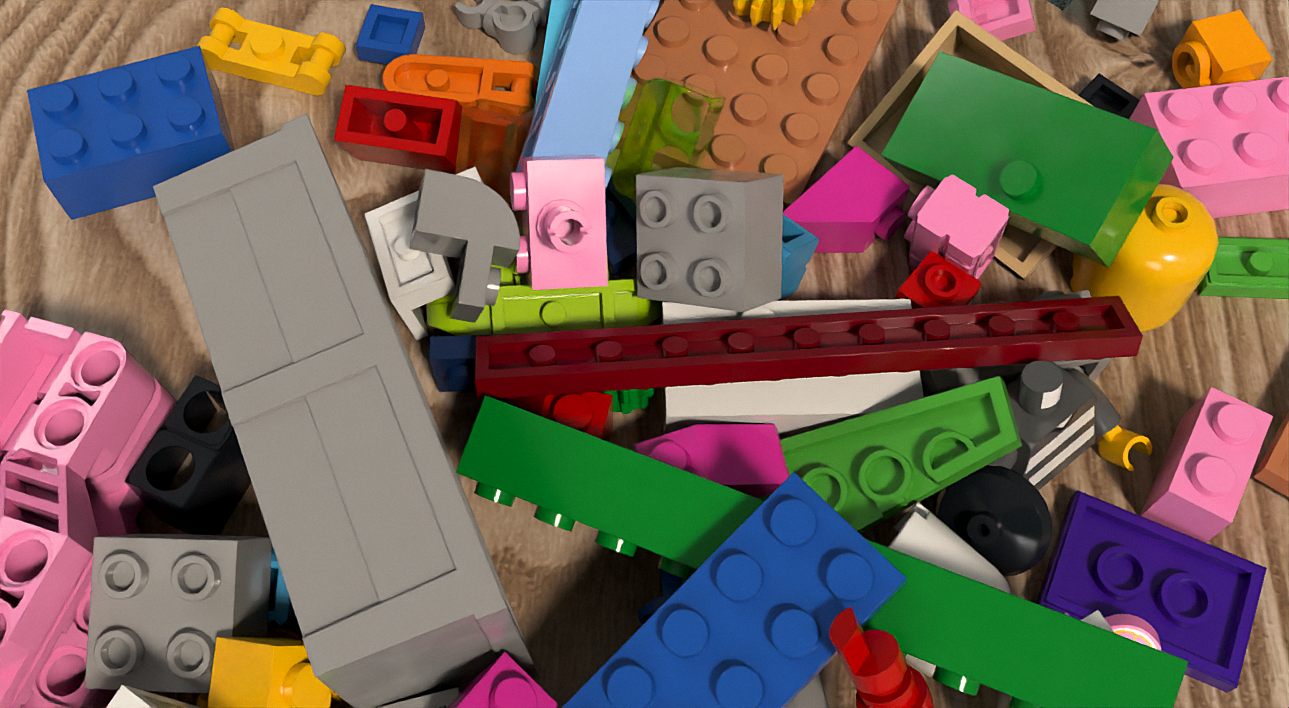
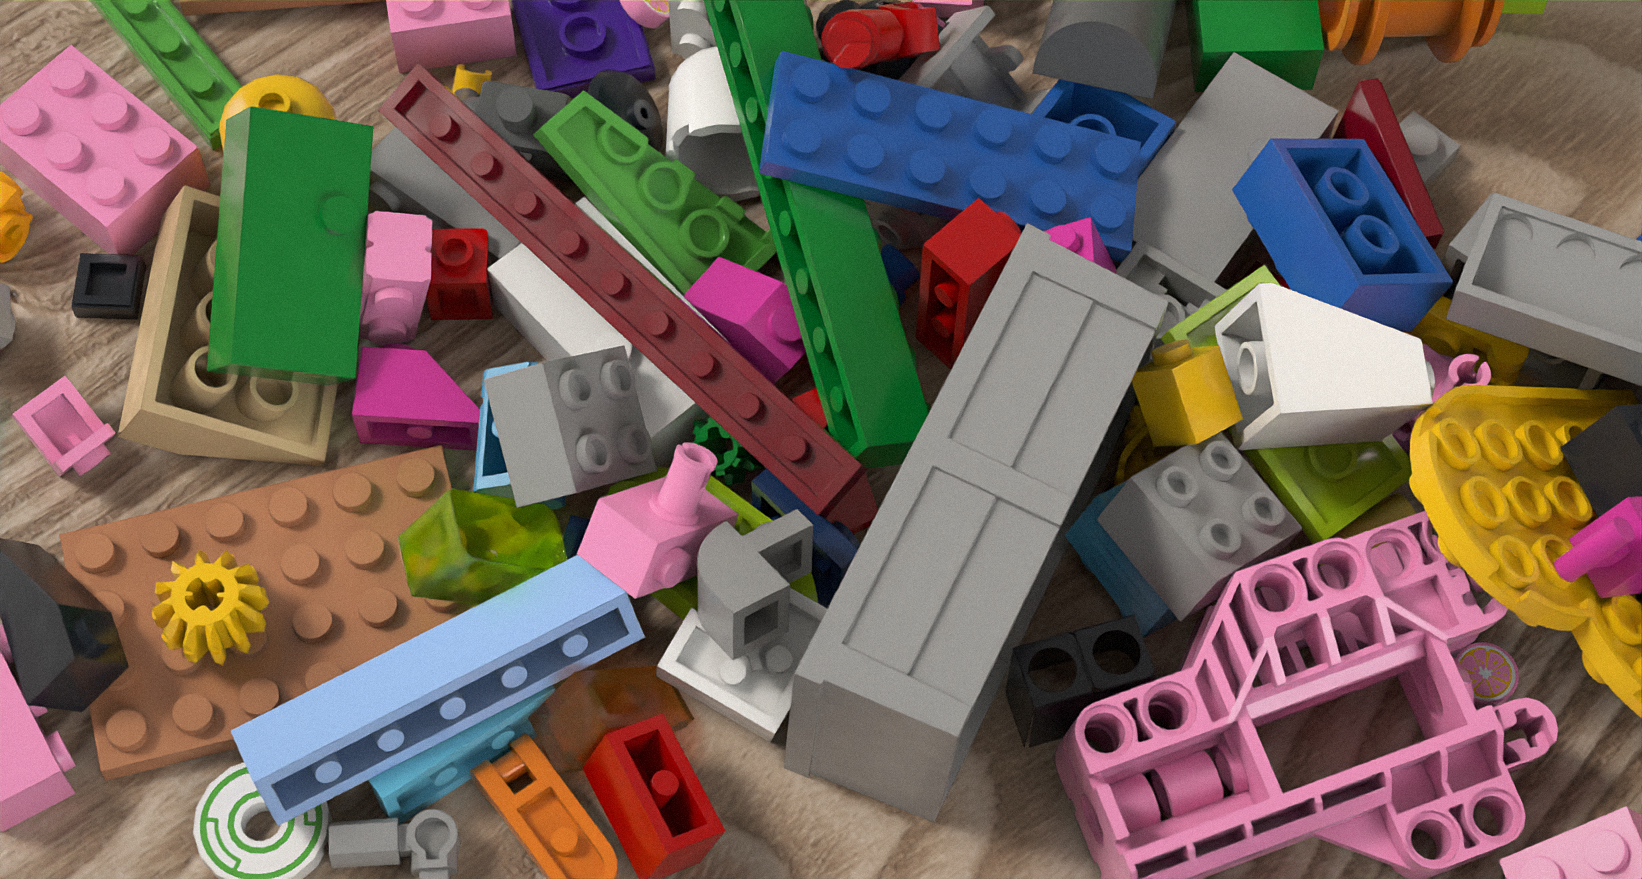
camera: 130 degrees left, 0 degrees up
(566, 621) = (959, 275): none -> red brick

